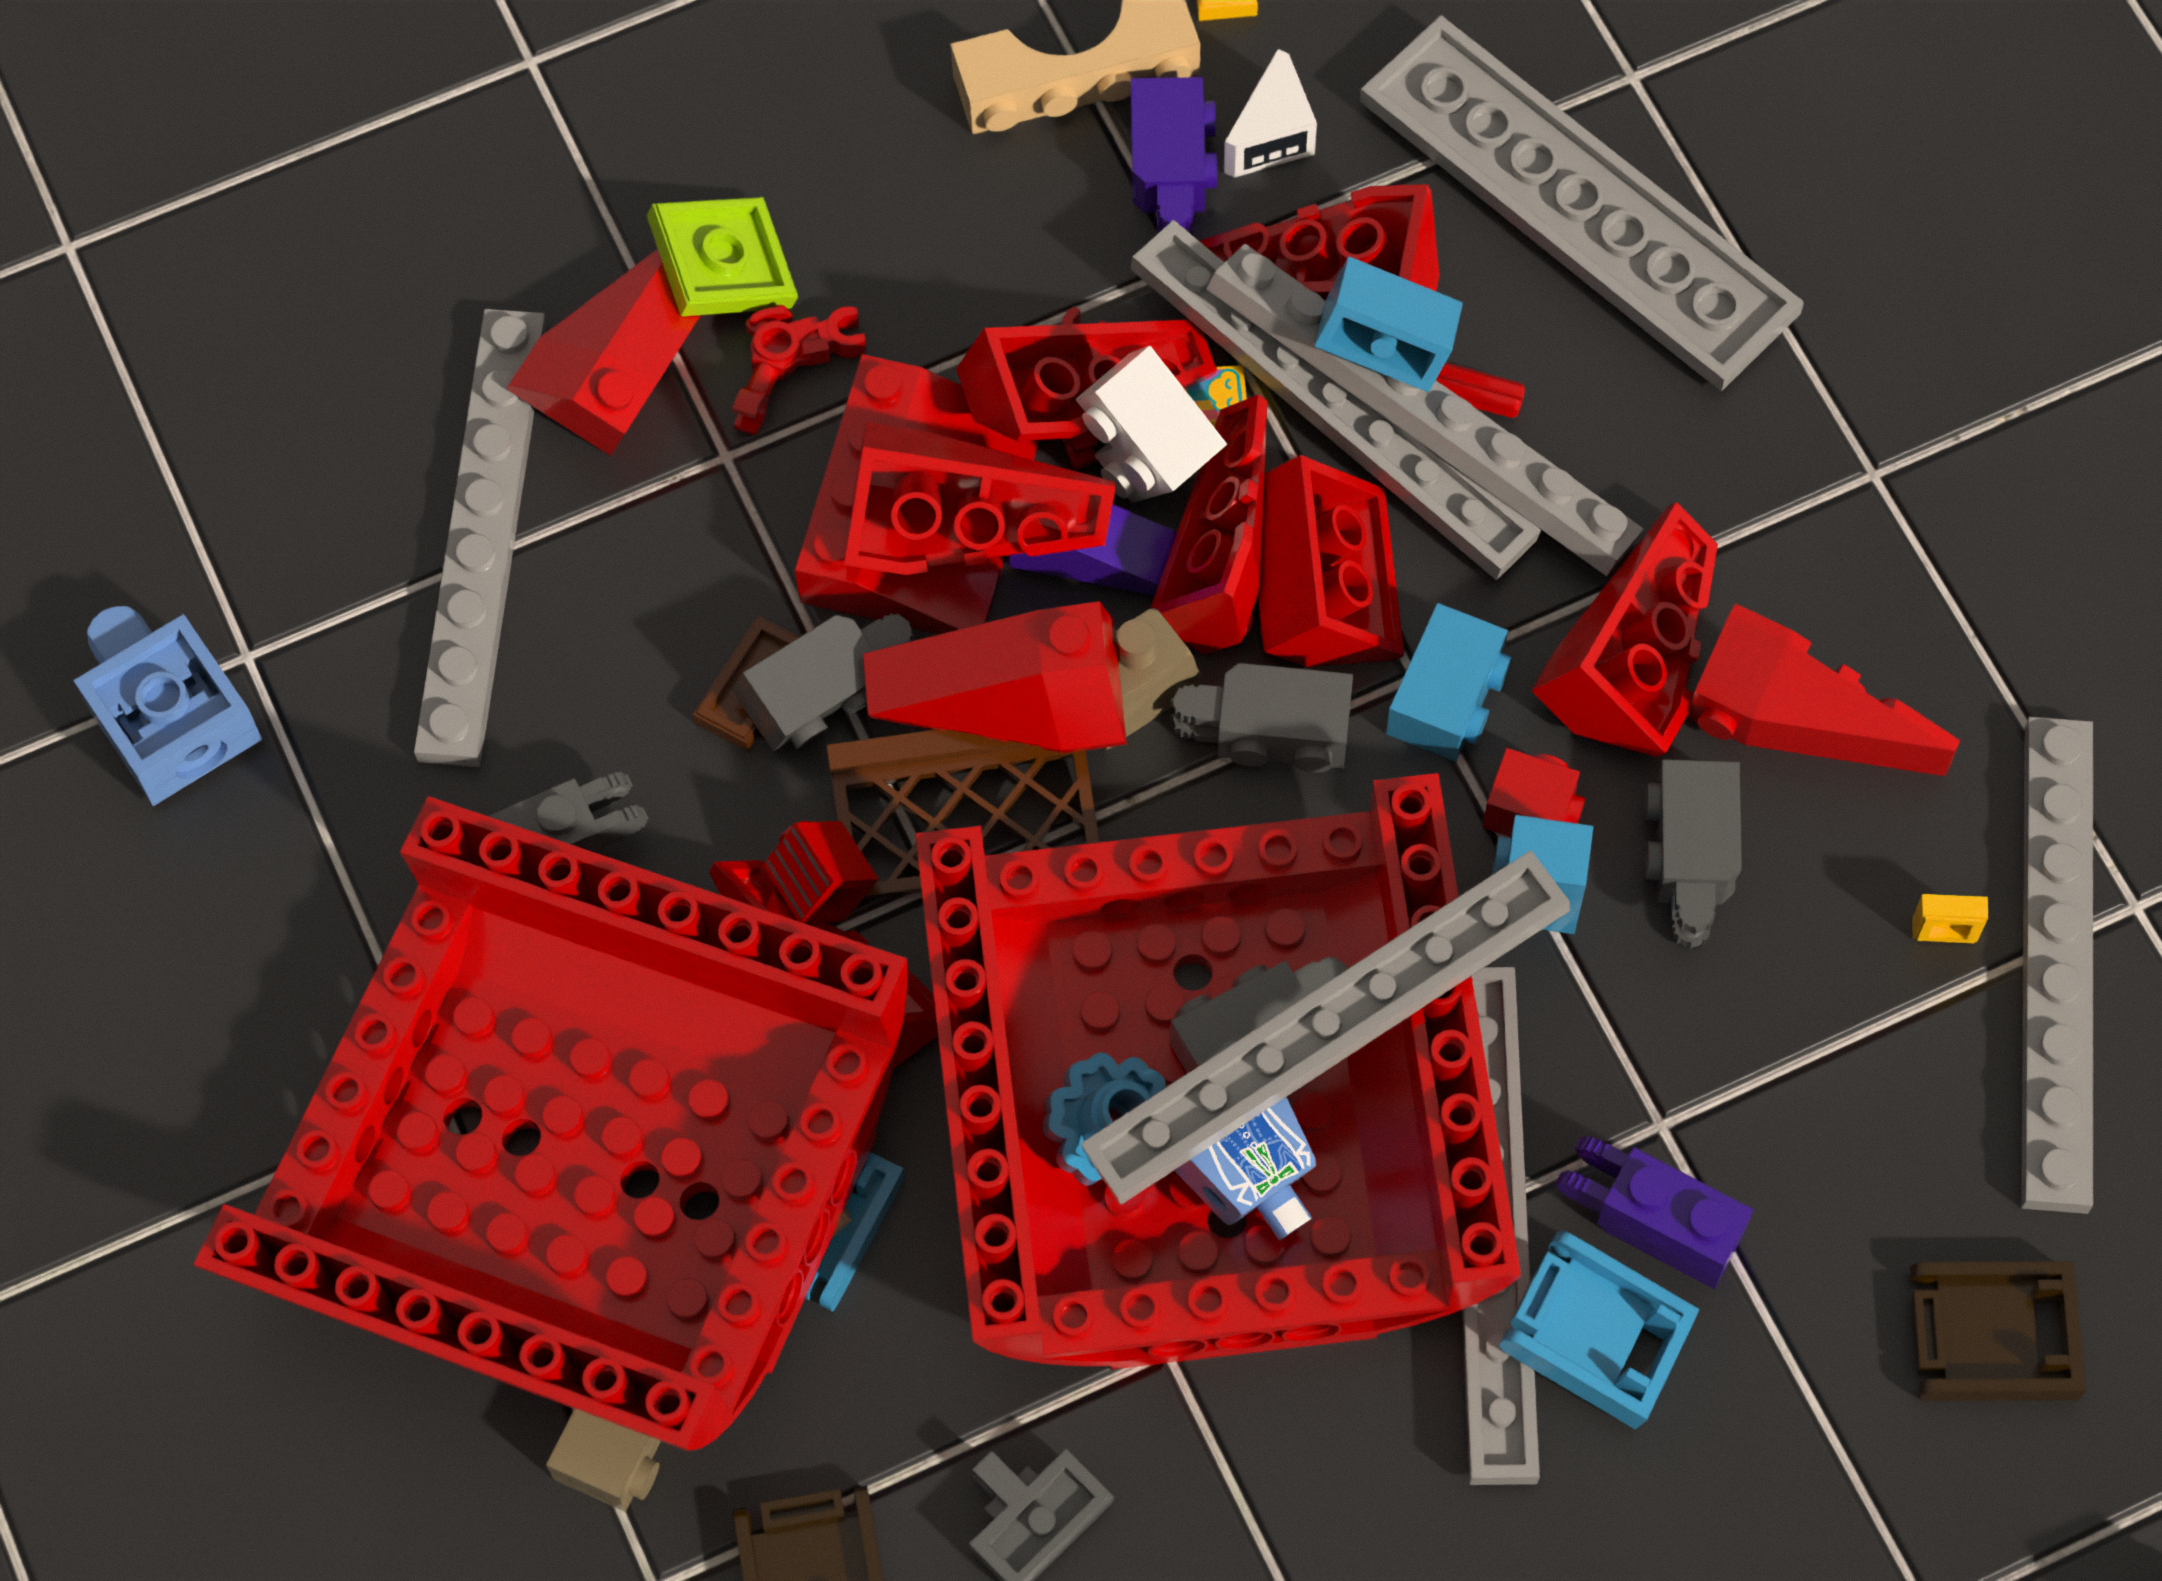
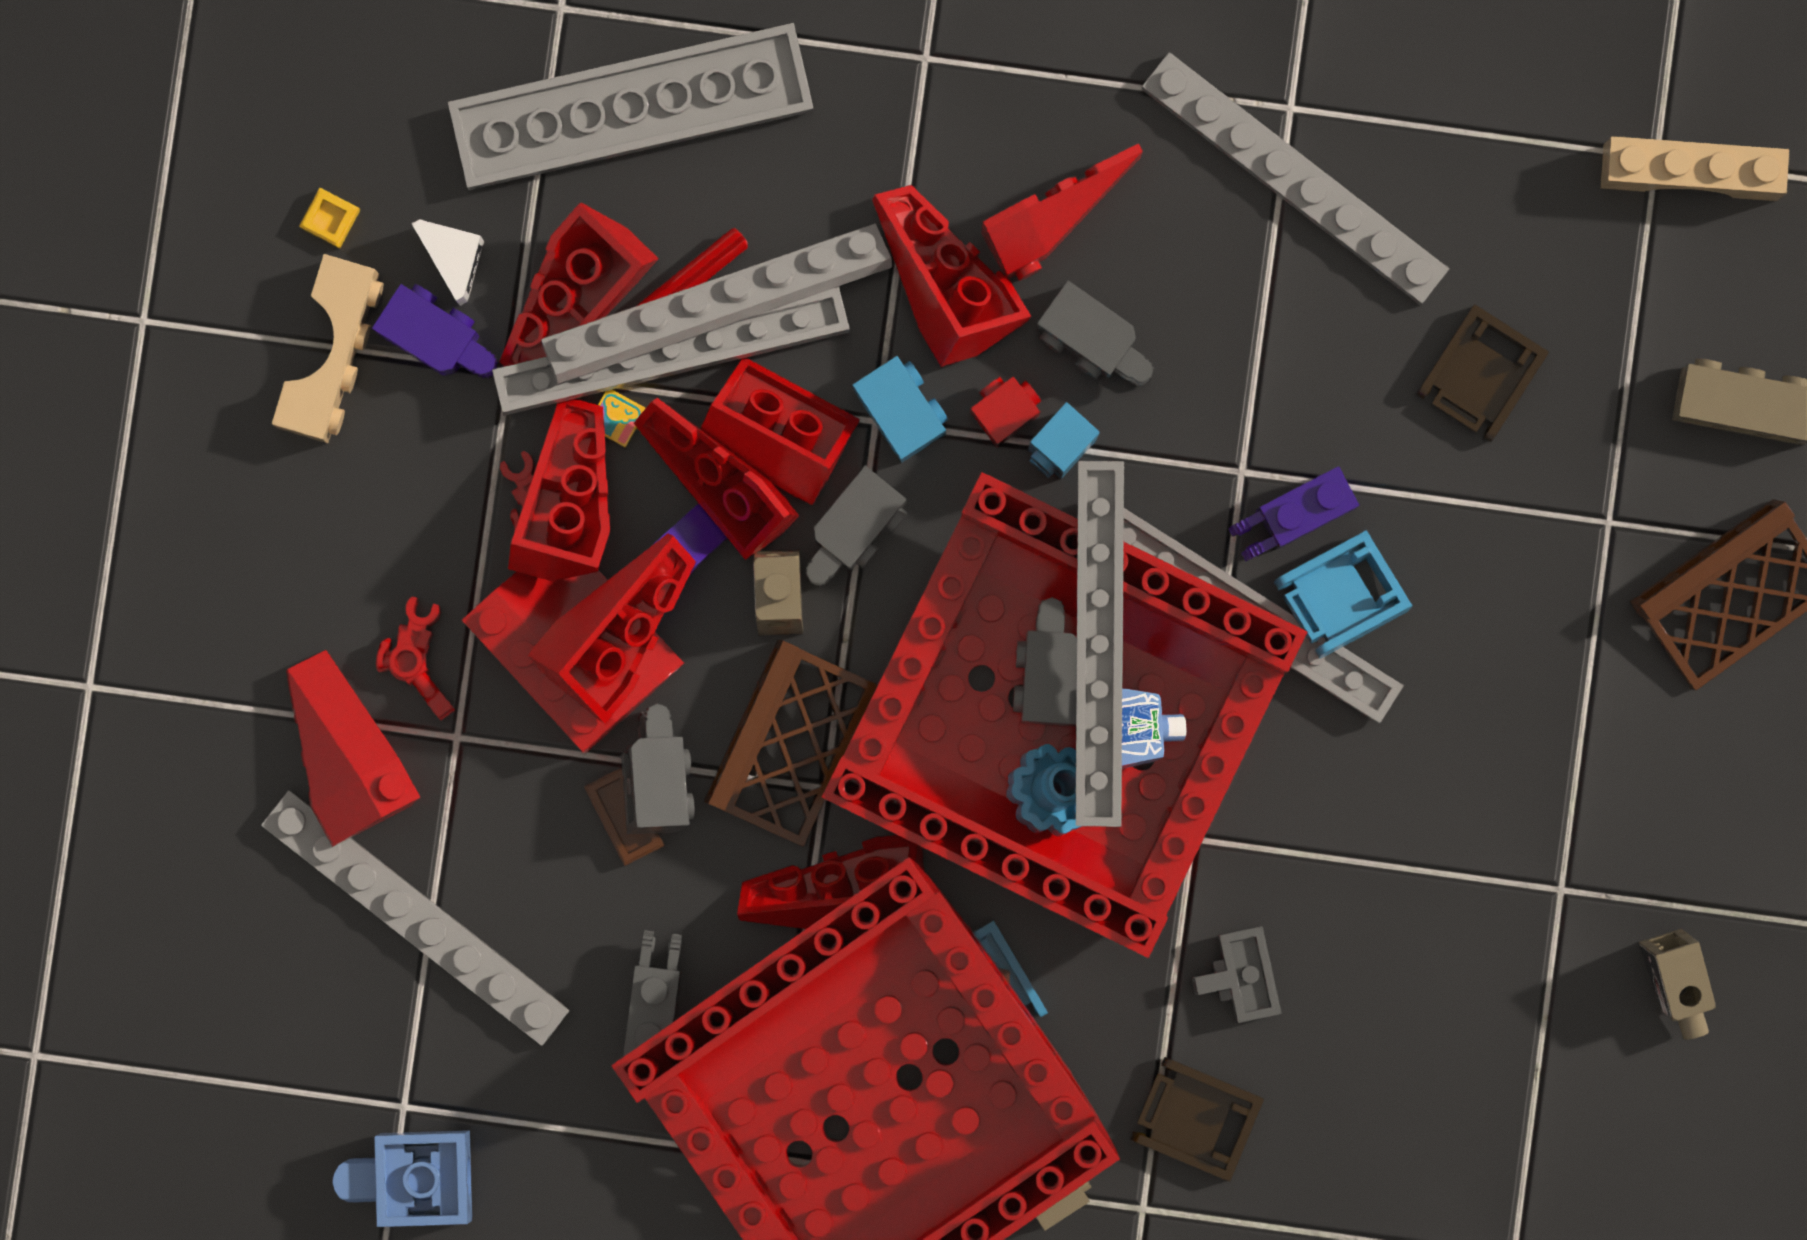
camera: 60 degrees left, 20 degrees up
(721, 256) = (323, 657): lime tile -> none
(820, 871) = (781, 855): red brick -> none
(1017, 679) = (753, 670): red wedge -> none
(1150, 425) = (634, 484): white brick -> none
(1388, 324) = (661, 294): dark azure brick -> none
(1949, 918) = (1234, 224): yellow tile -> none

